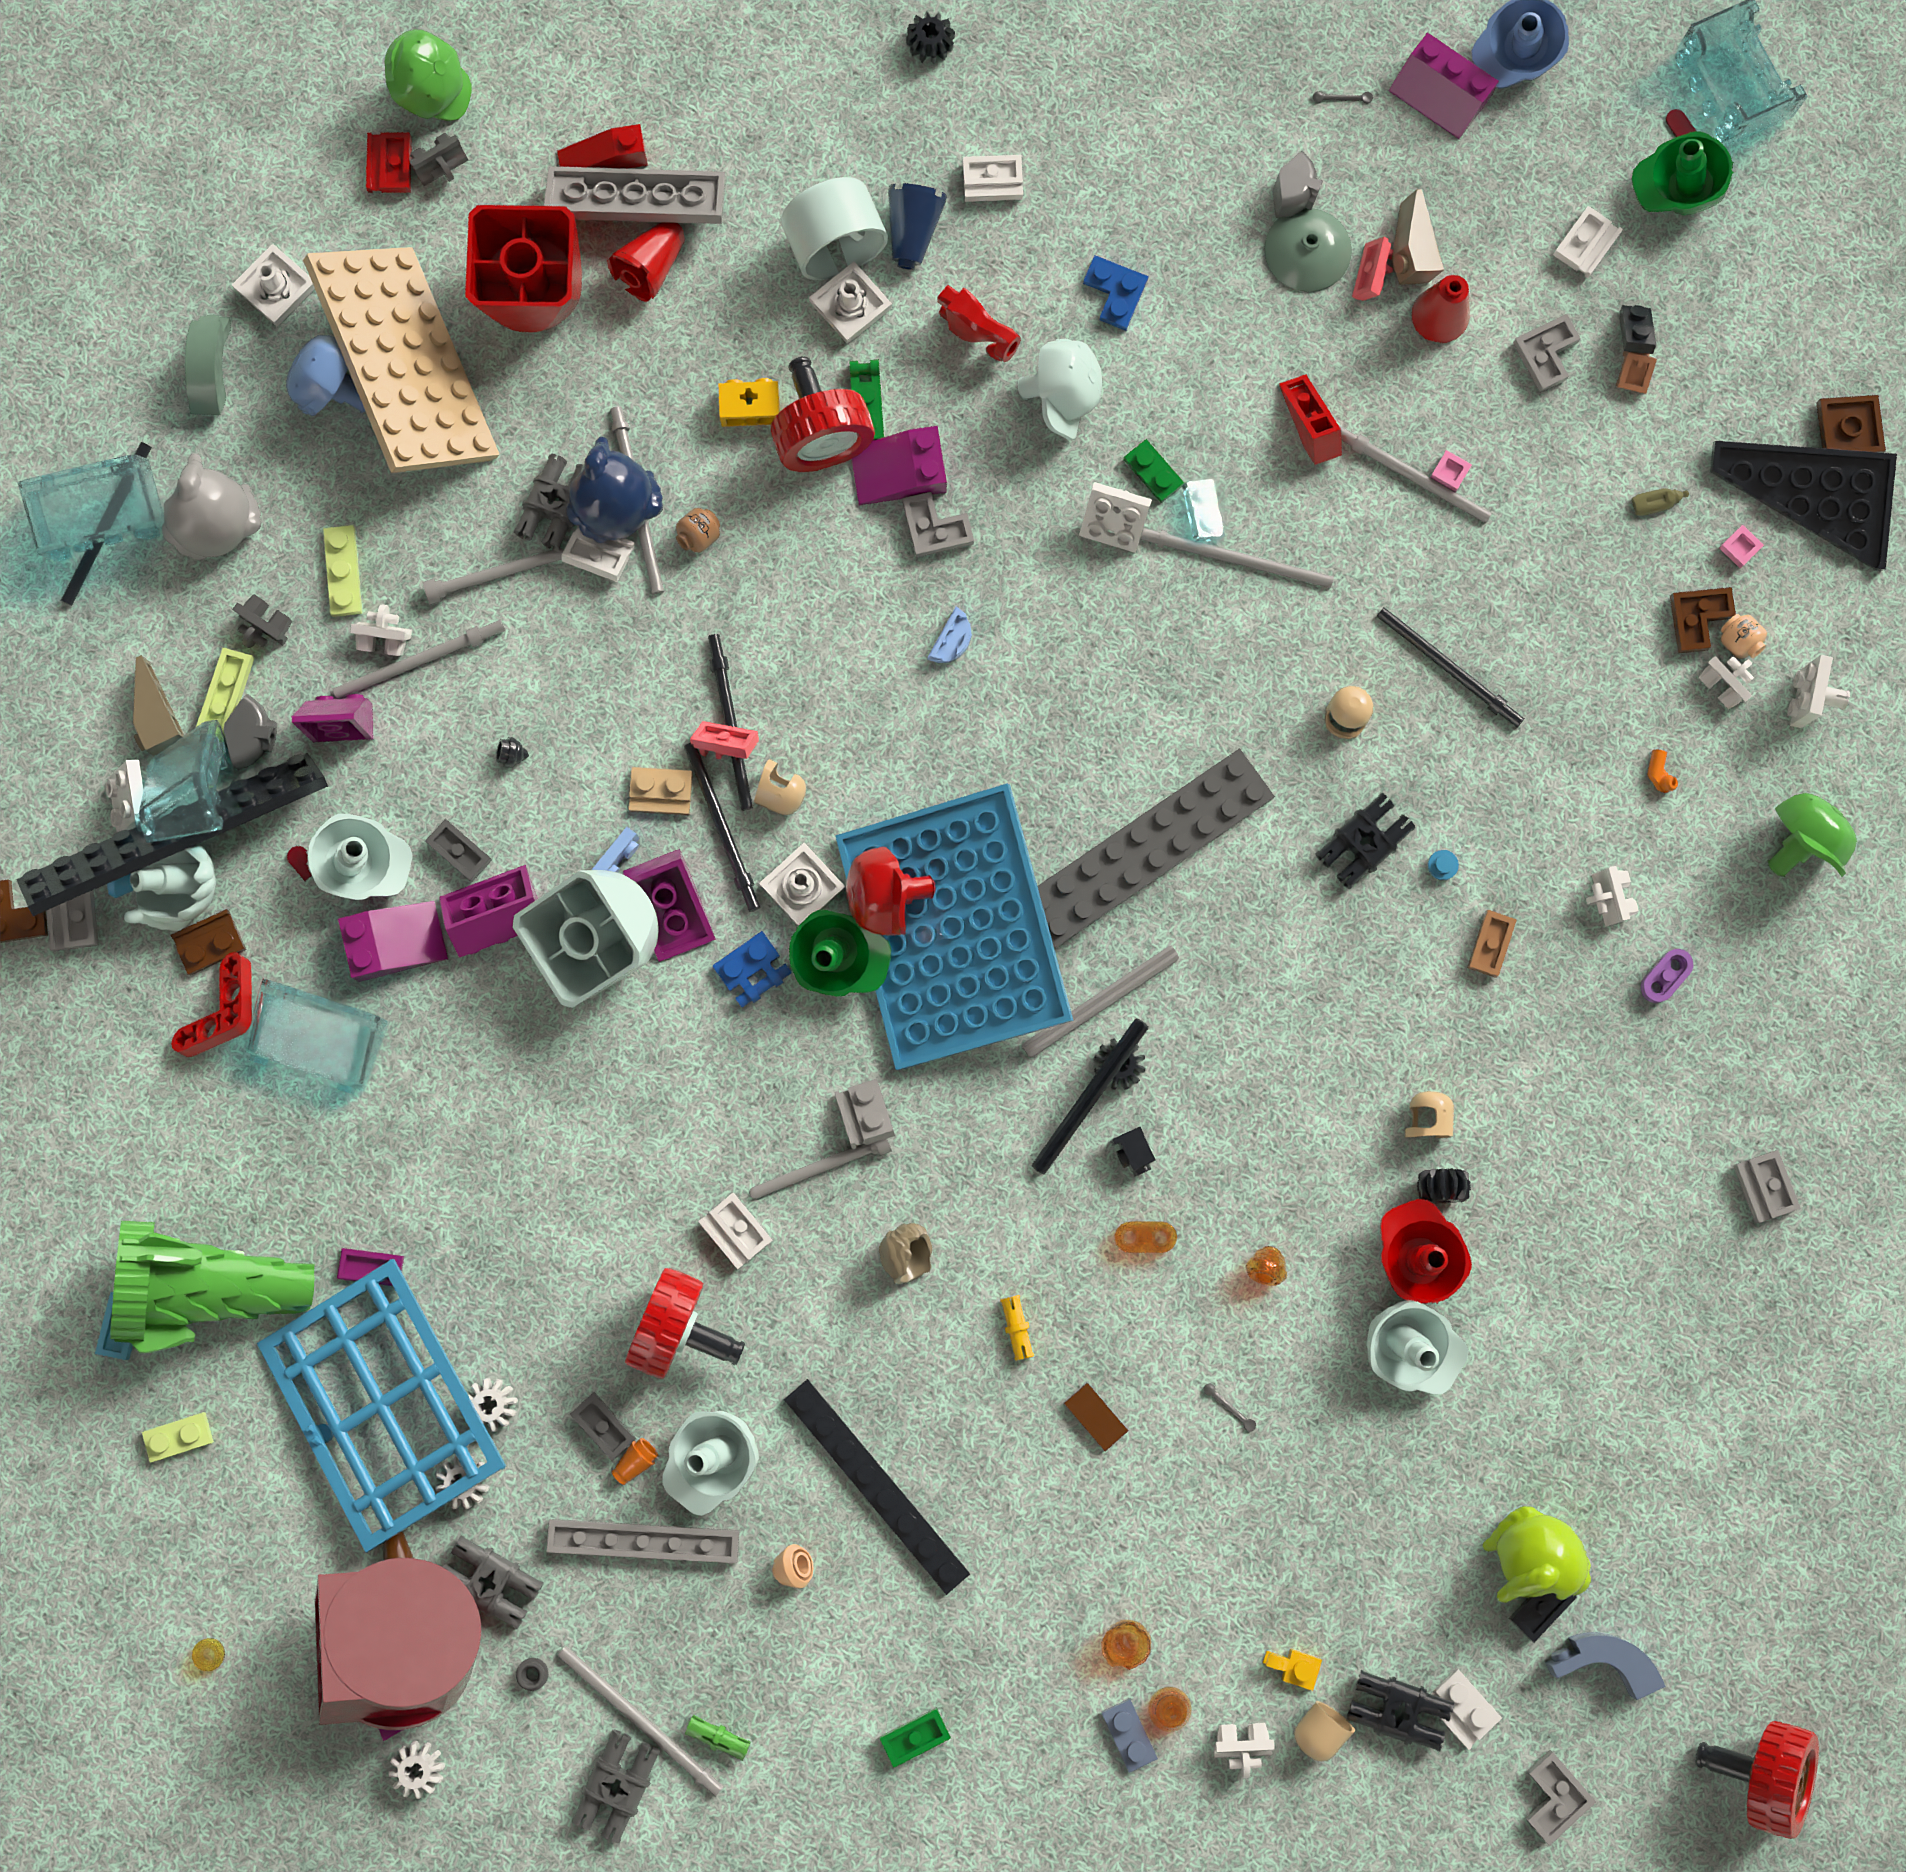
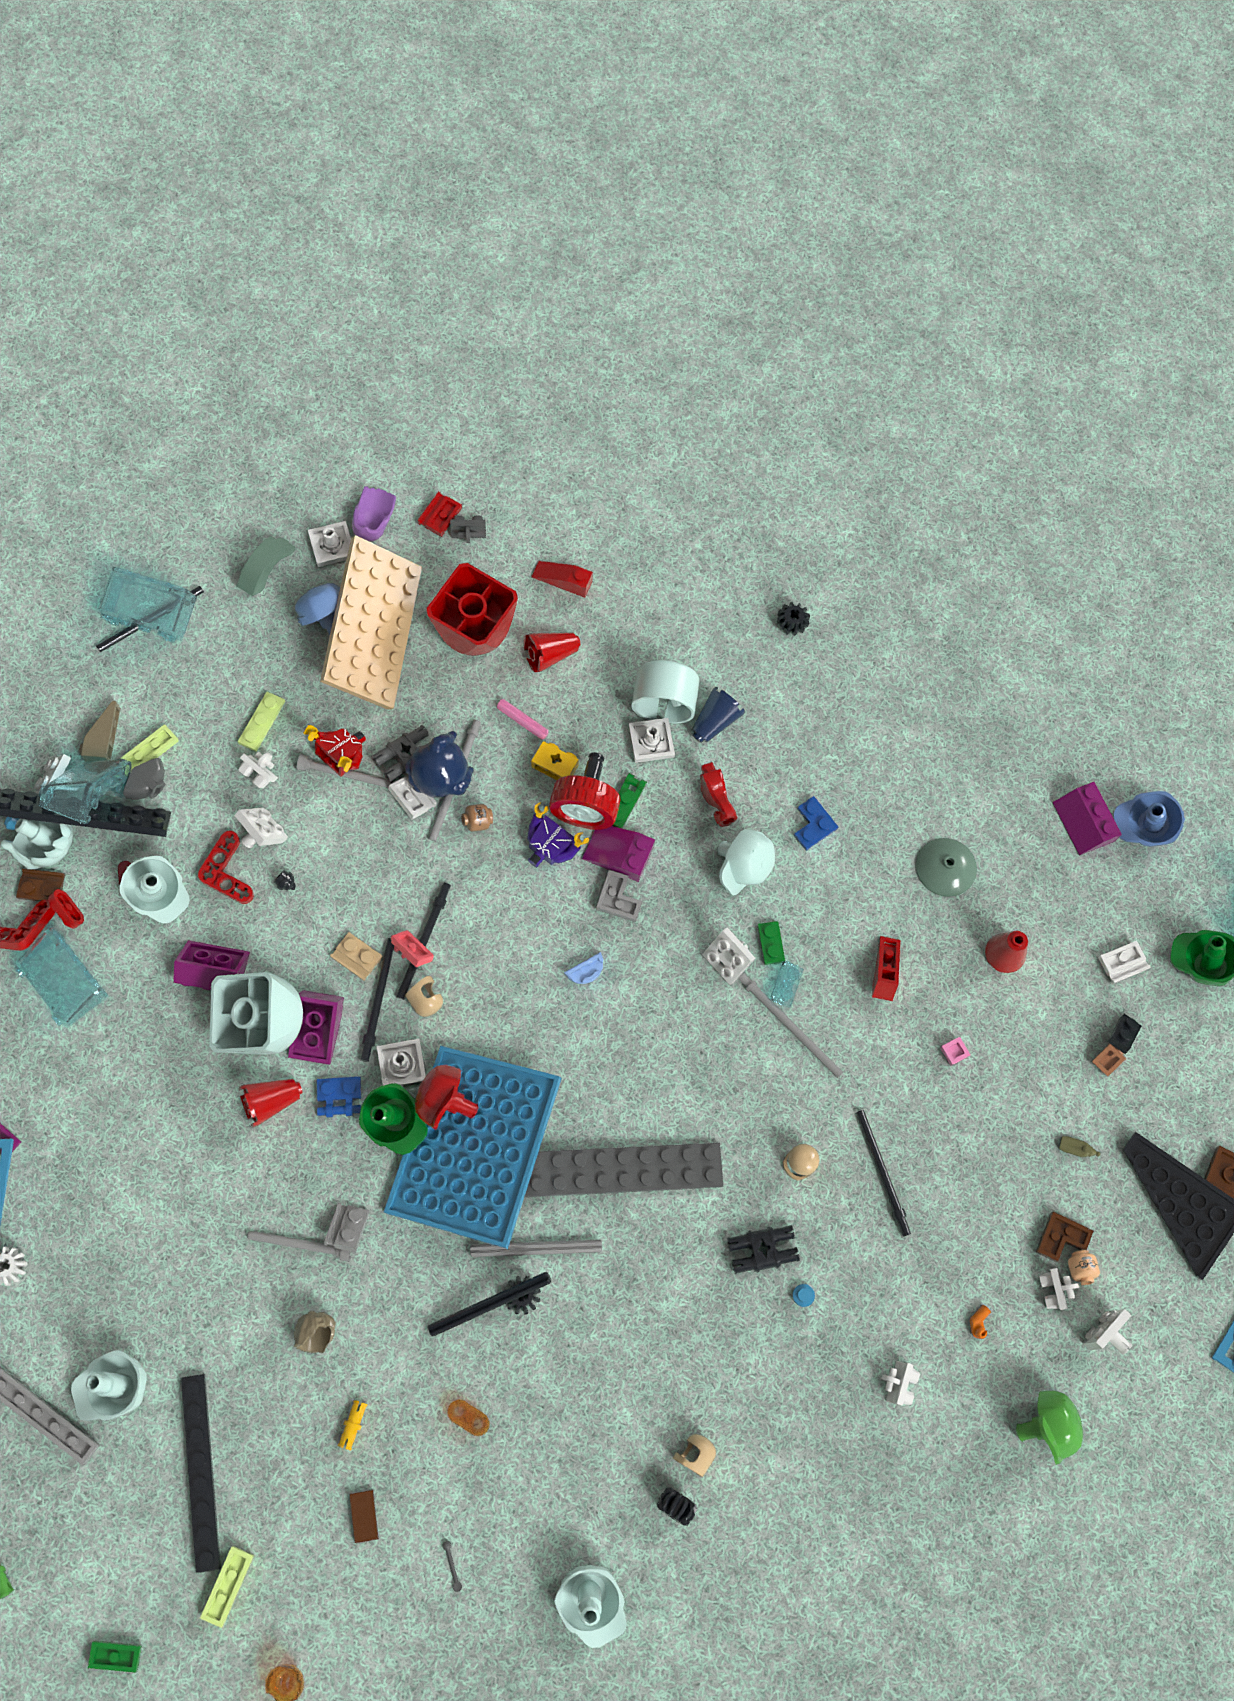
camera: 30 degrees right, 10 degrees down
(208, 512) = (207, 644): light grey piece -> none
(252, 613) = (195, 714): dark grey hips -> none
(262, 950) = (66, 909): none -> red plate
(301, 212) = (372, 513): none -> medium lavender hair
(335, 719) = (197, 801): magenta slope -> none
(392, 940) = (142, 948): magenta slope -> none
(425, 795) = (219, 876): none -> red beam
(427, 76) = (489, 480): bright green piece -> none
(437, 704) = (260, 827): none -> white plate
(458, 850) = (216, 919): dark grey plate -> none
(466, 547) = (337, 748): none -> red torso
(473, 636) = (309, 802): light grey bar -> none
(603, 1426) = (63, 1323): dark grey plate -> none
(622, 847) = (311, 976): light blue plate -> none
(635, 1460) = (67, 1358): orange cone -> none
(637, 194) = (566, 609): light grey plate -> none
(670, 1024) = (268, 1098): none -> red cone
(671, 371) = (522, 719): none -> bright pink axle
(671, 1325) = (140, 1285): red wheel -> none
(735, 1231) = (223, 1251): white plate -> none
(793, 1567) = (115, 1491): light nougat cone -> none
(808, 504) = (550, 840): none -> dark purple torso
(991, 1586) = (227, 1586): none -> yellowish green plate
(993, 178) = (780, 717): white plate -> none
(1134, 1151) = (495, 1357): black brick -> none
(1267, 1266) = (532, 1487): clear orange cone -> none
(1295, 186) = (960, 825): piece -> none
(1360, 444) = (909, 1002): light grey bar -> none
(1366, 97) = (1036, 799): dark grey hinge -> none
(1373, 269) = (979, 901): coral plate -> none
(1415, 246) = (1012, 904): slope -> none
(1423, 1252) = (635, 1543): red piece -> none
(1491, 943) = (804, 1366): medium nougat plate -> none
(1539, 351) = (1055, 1009): light grey plate -> none
(1667, 977) = (905, 1458): medium lavender plate -> none
(1679, 123) = (1224, 924): dark red piece -> none
(1741, 546) = (1115, 1208): bright pink plate -> none
(1766, 1186) = (890, 1645): light grey plate -> none

